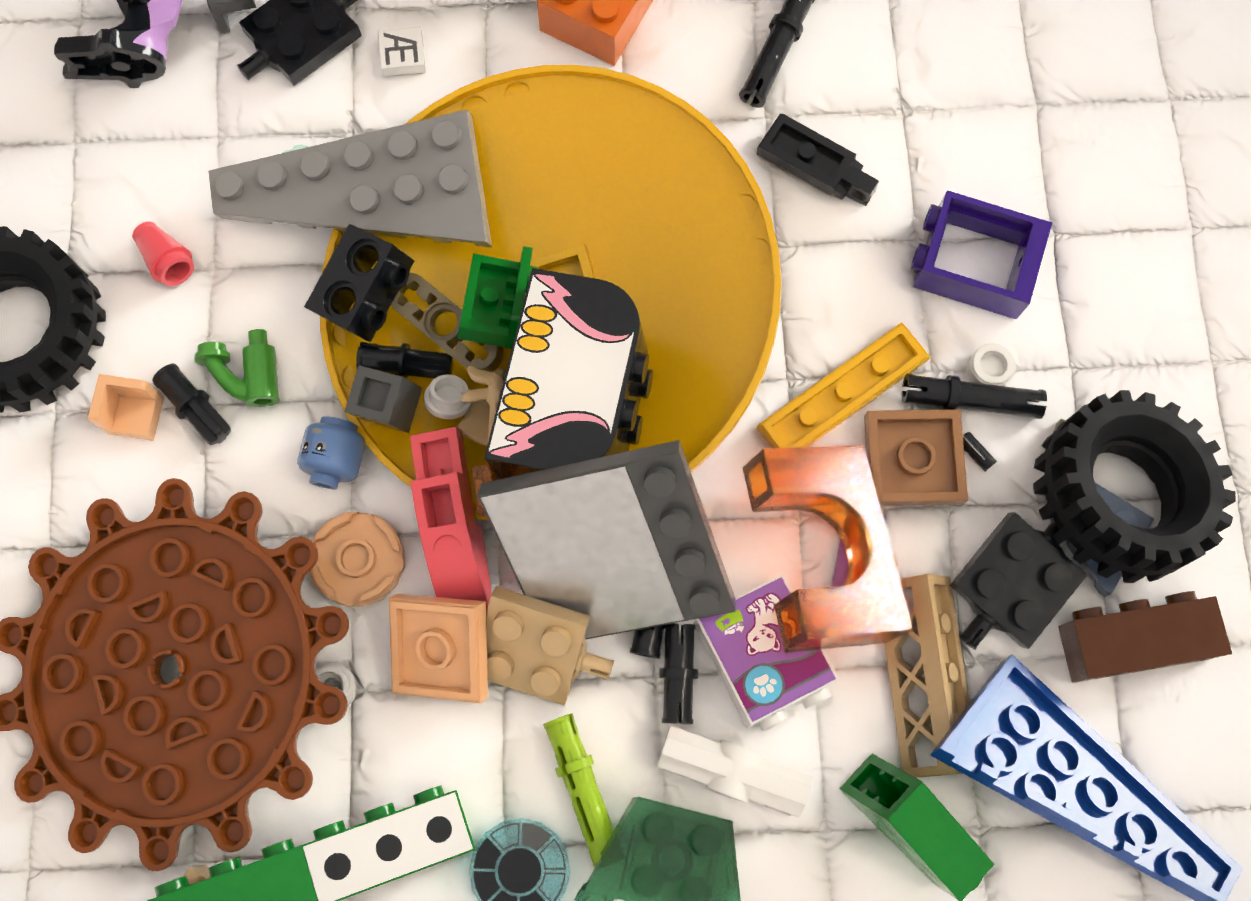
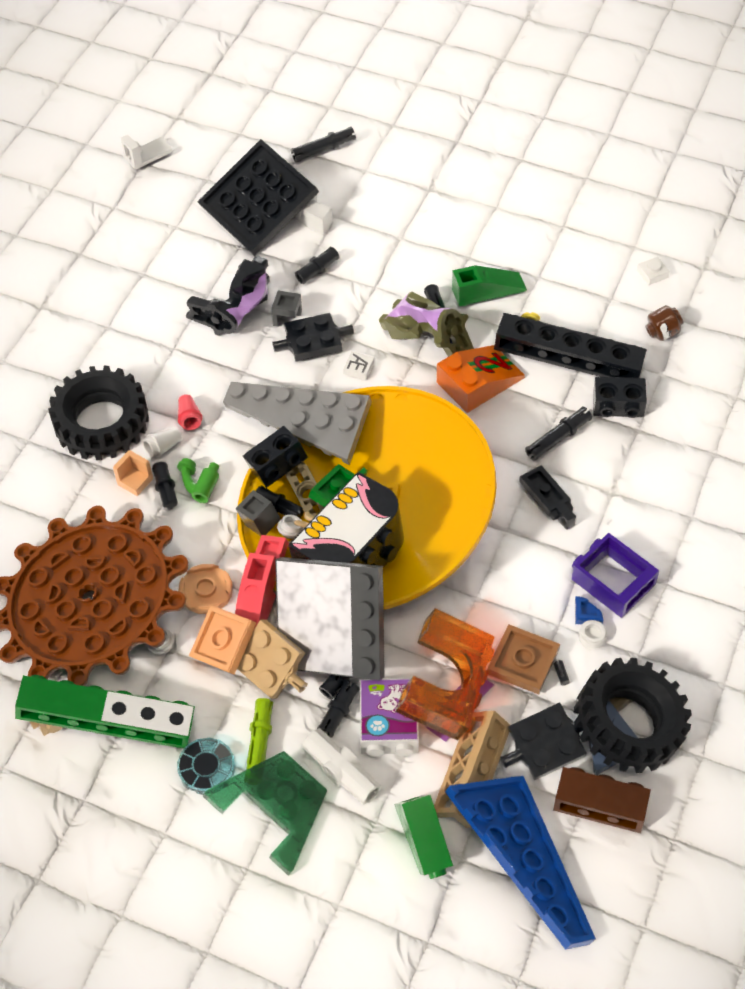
camera: 30 degrees right, 20 degrees down
(144, 327) = (159, 442): none -> white cone
(331, 452) = (220, 532): medium blue head -> none
(844, 390) = (511, 611): yellow tile -> none
(954, 394) = (572, 642): black pin -> none
(963, 333) = (586, 611): none -> blue tile

